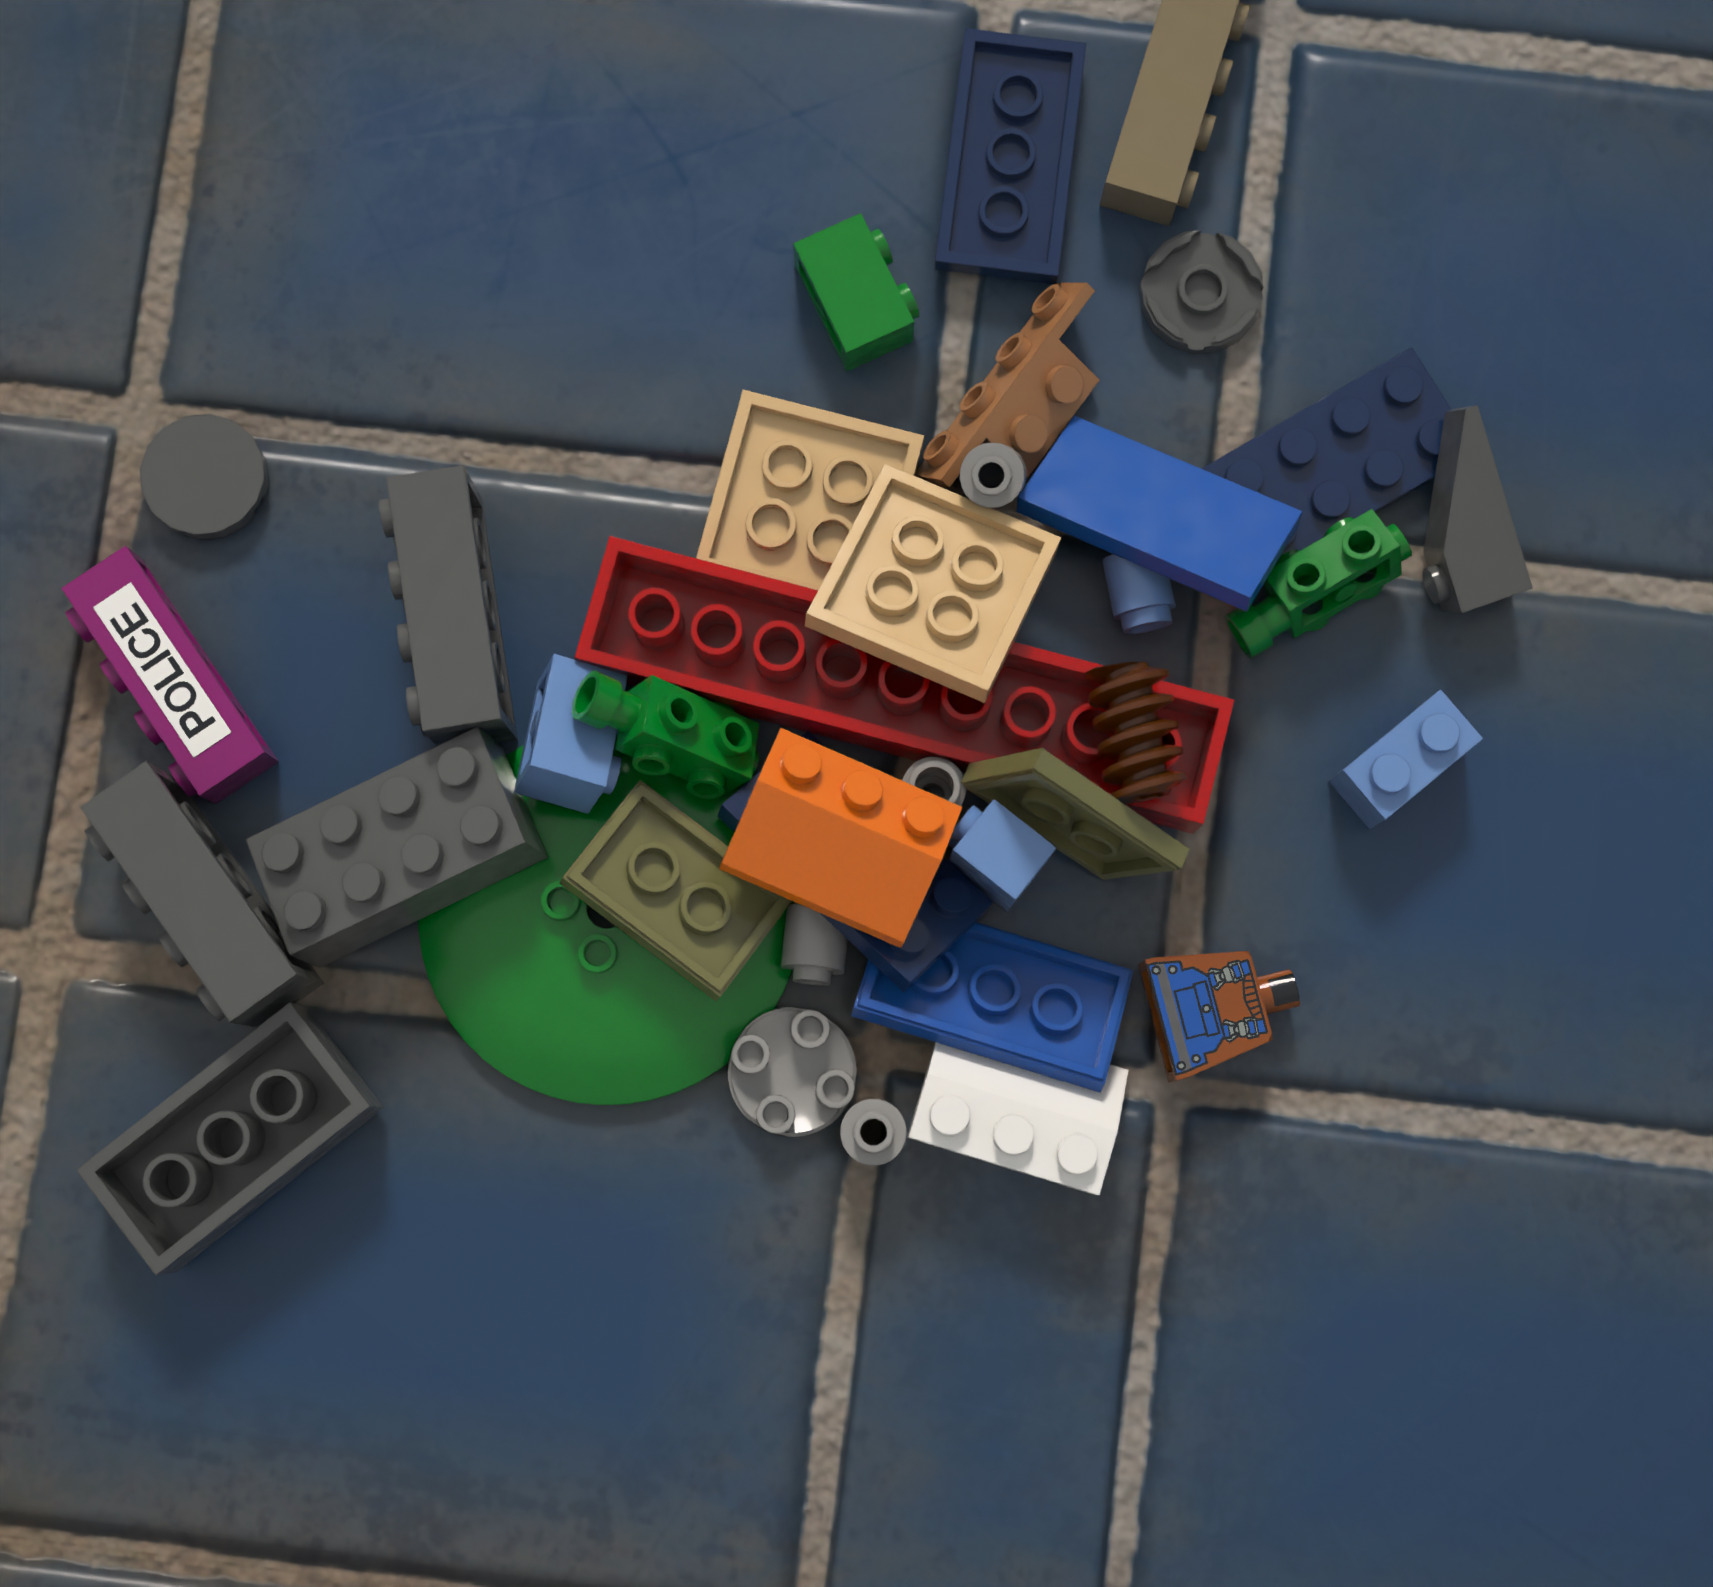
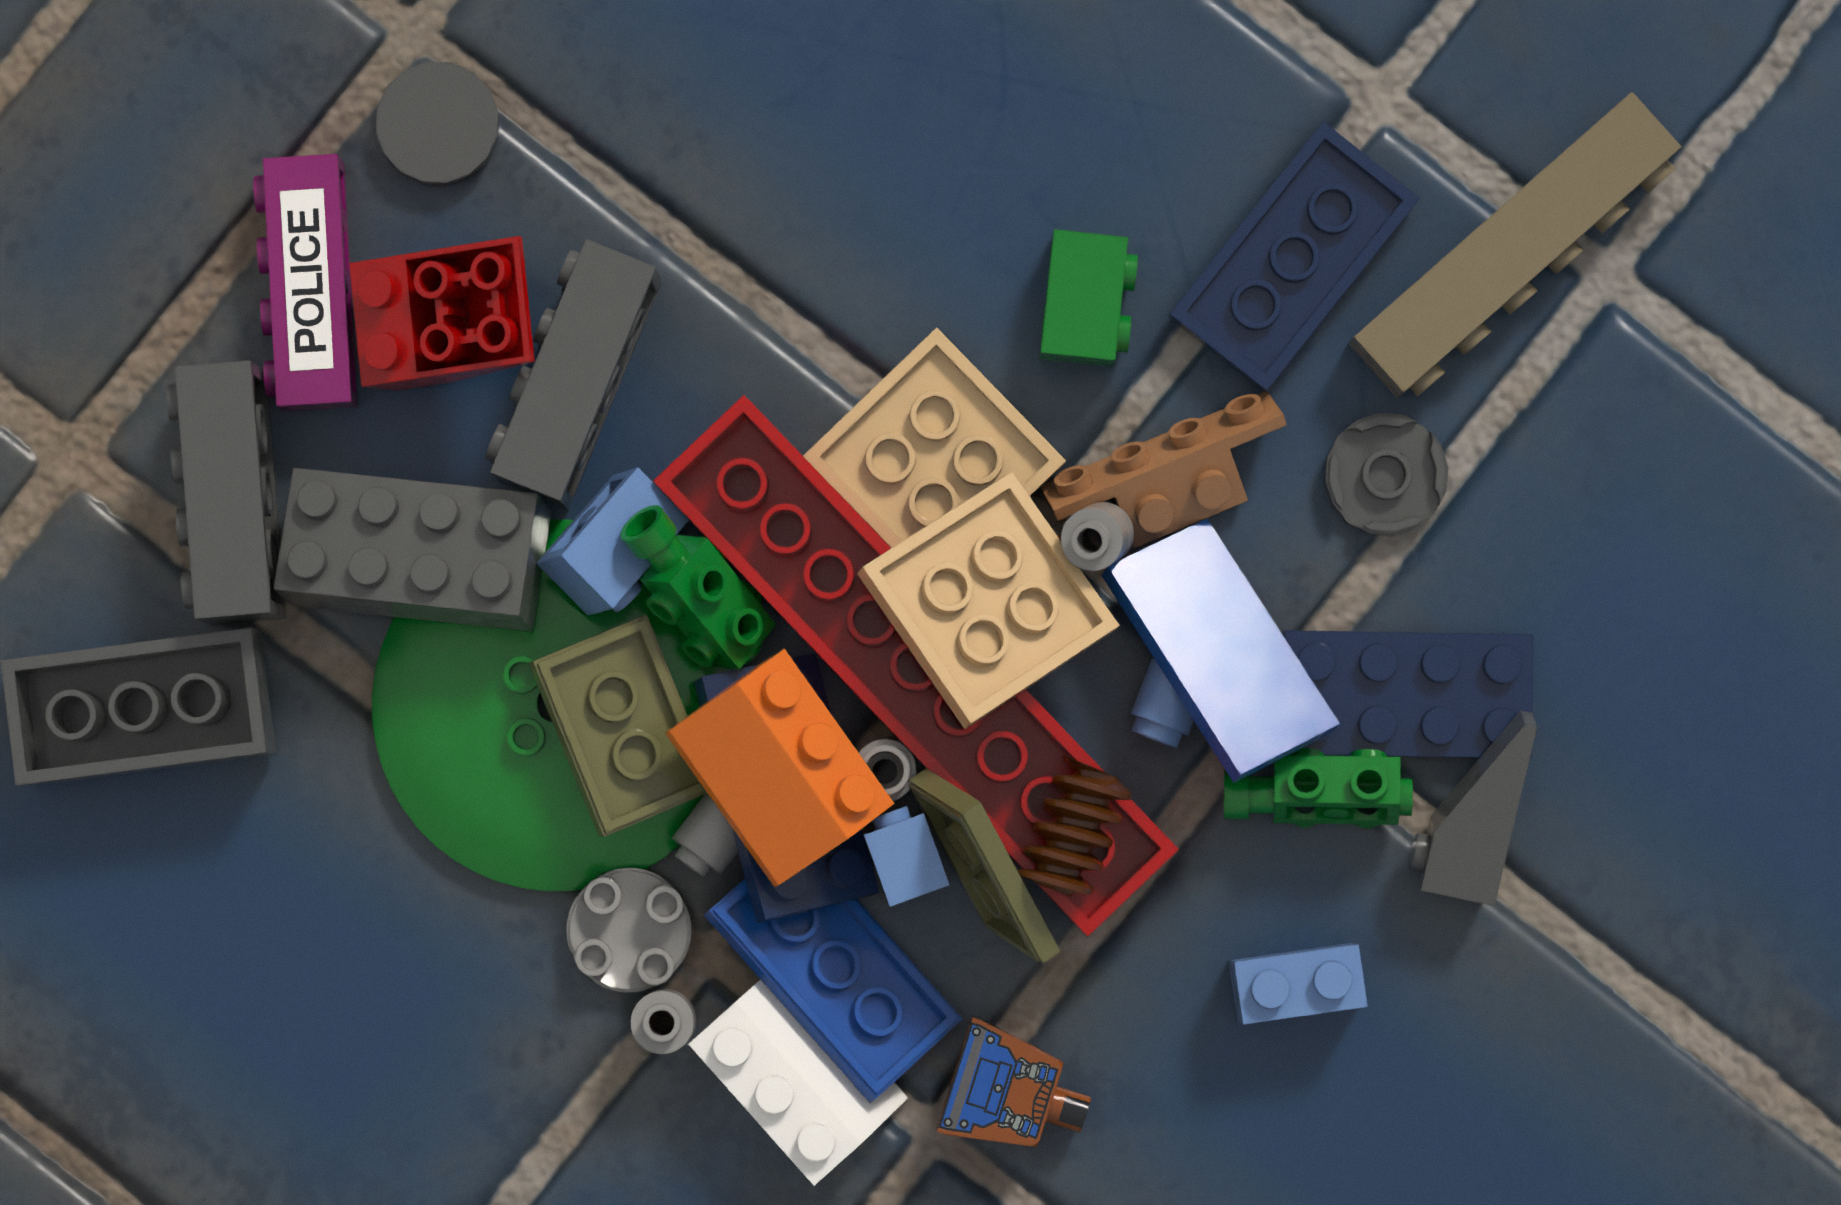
camera: 25 degrees right, 5 degrees up
(300, 626) = (441, 314): none -> red slope

